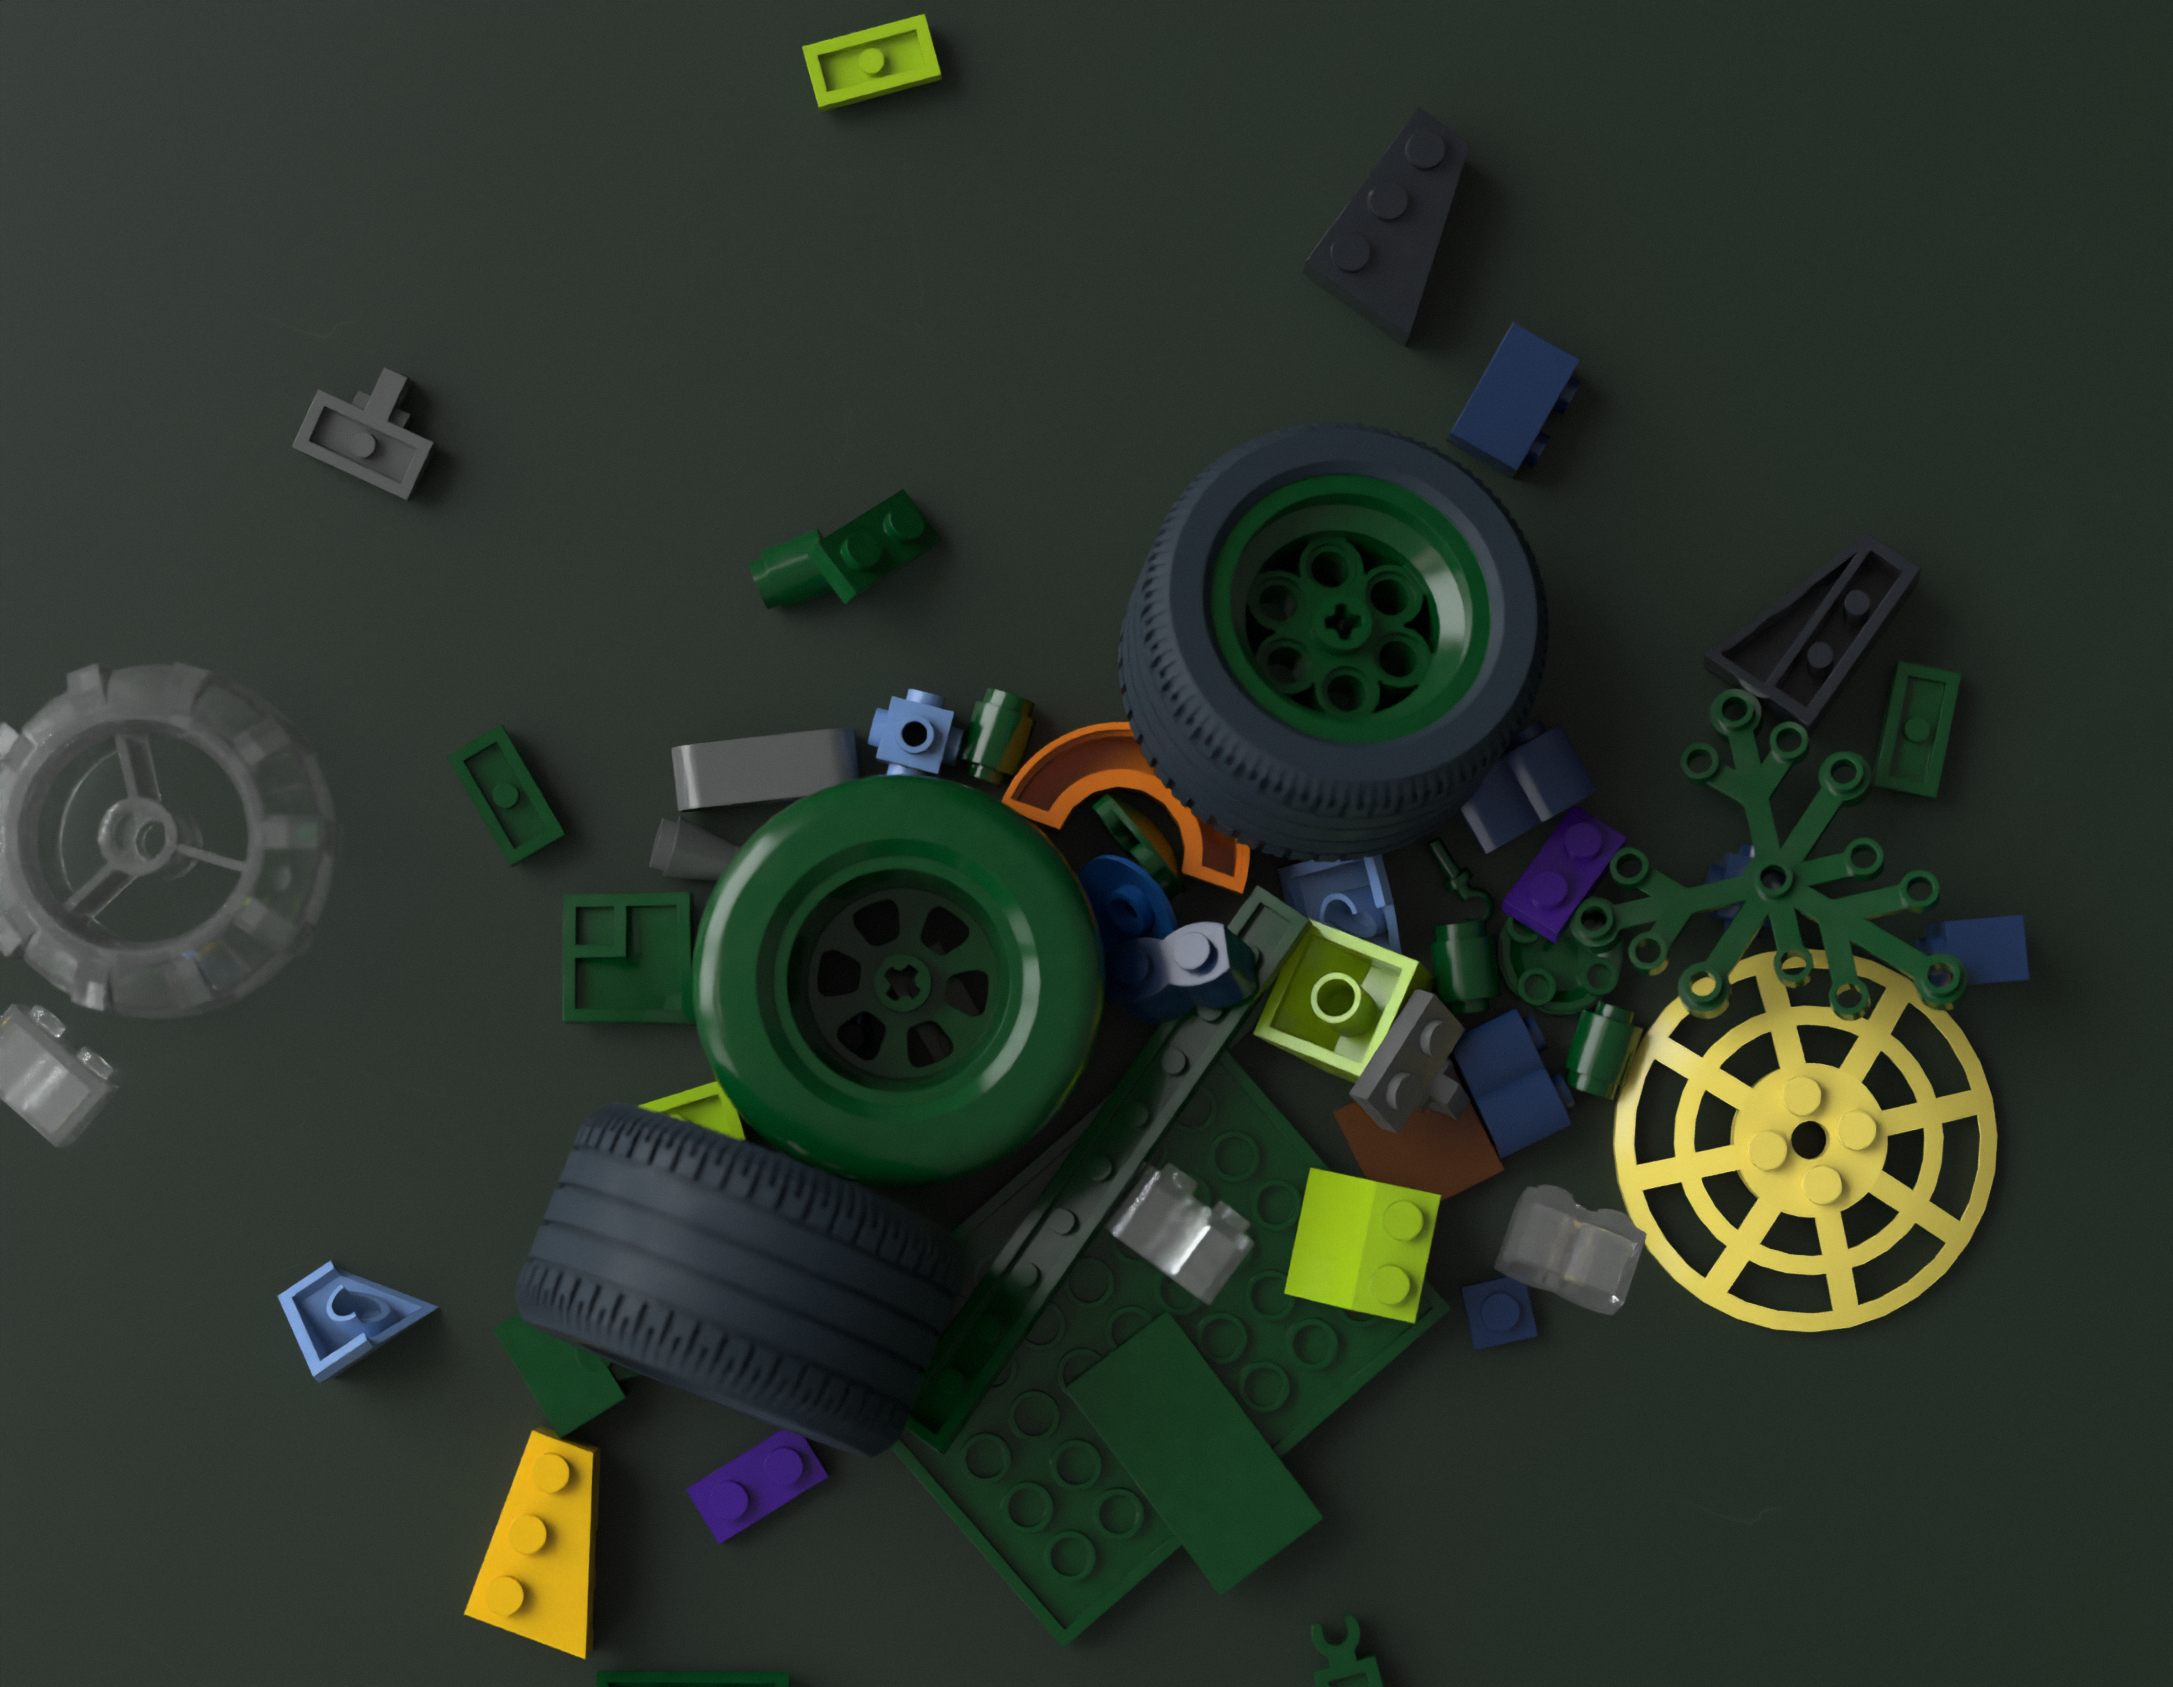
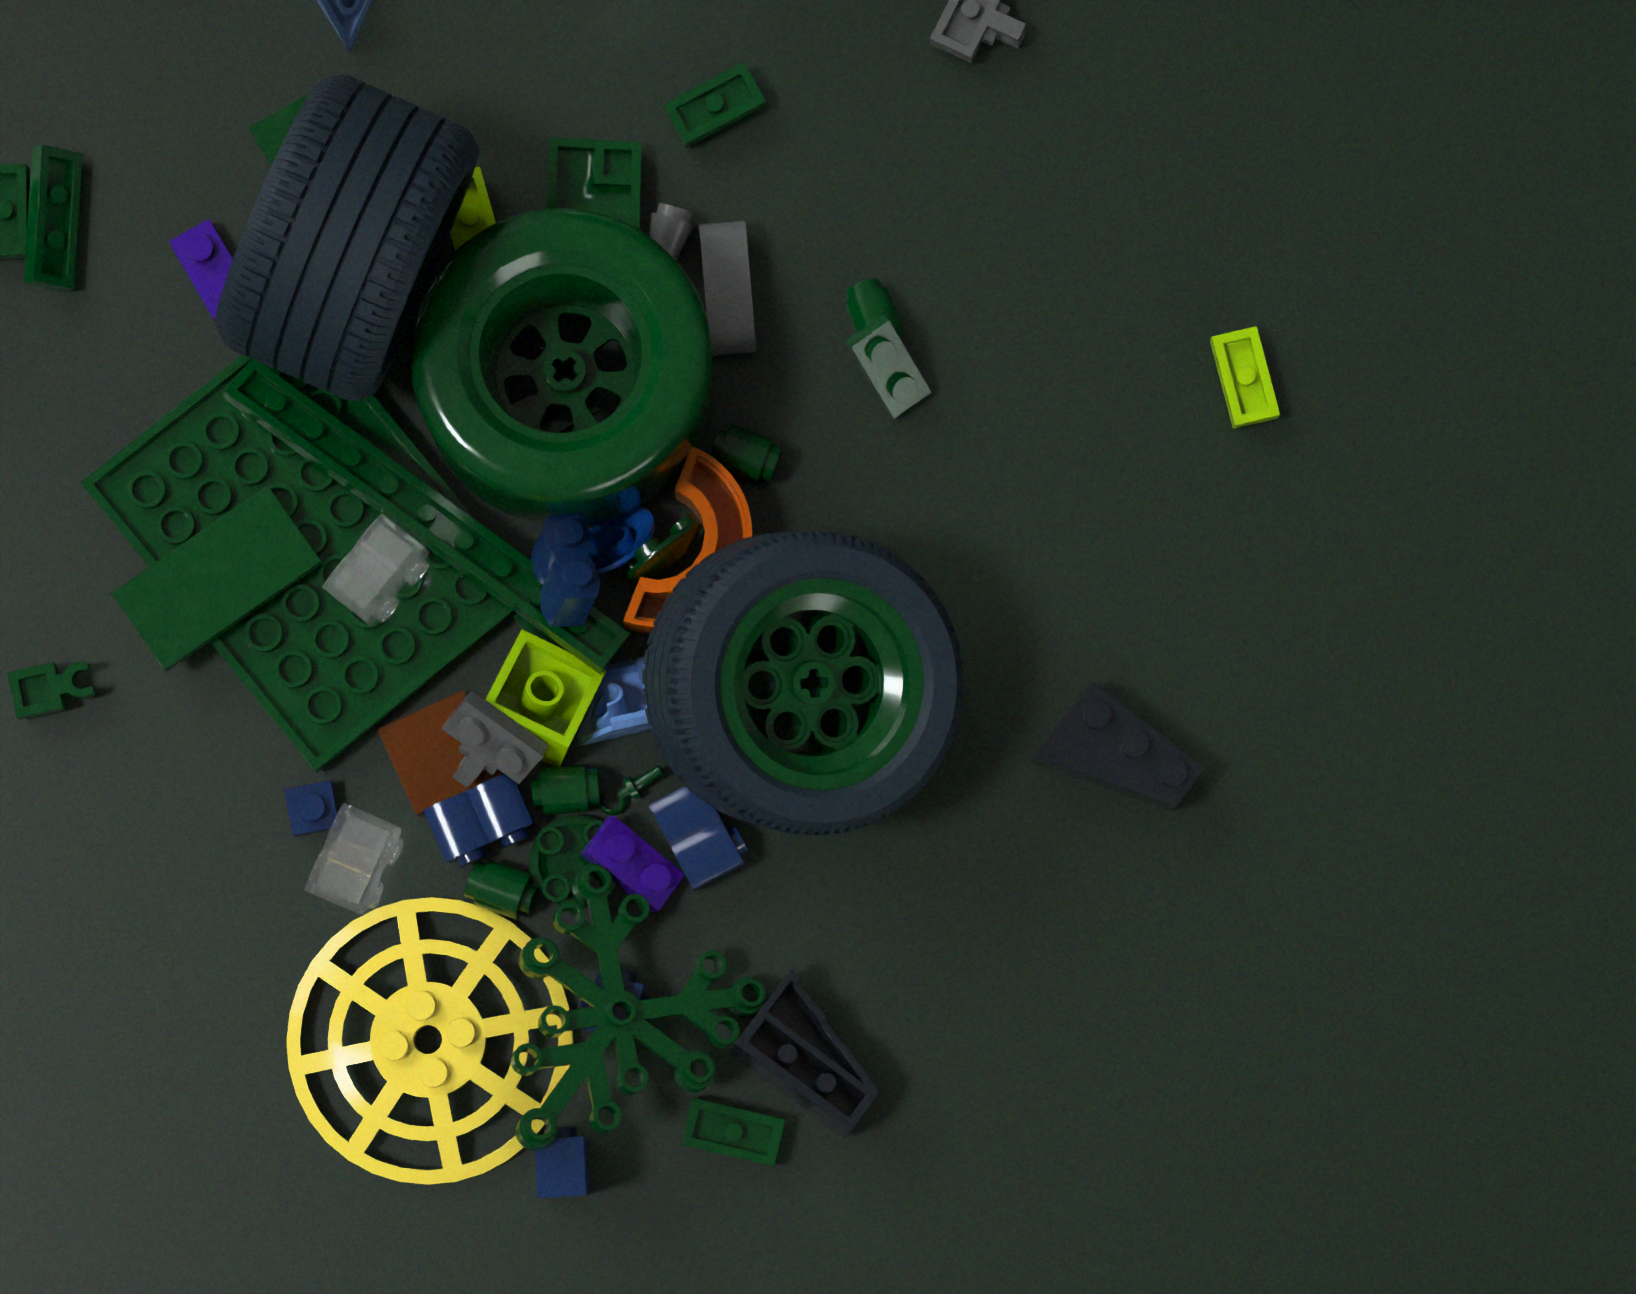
camera: 85 degrees right, 5 degrees down
(543, 1550) = (171, 116): yellow wedge -> none
(942, 739) = (747, 410): medium blue brick -> none
(1362, 1245) = (362, 704): lime slope -> none
(1514, 401) = (986, 839): dark blue brick -> none

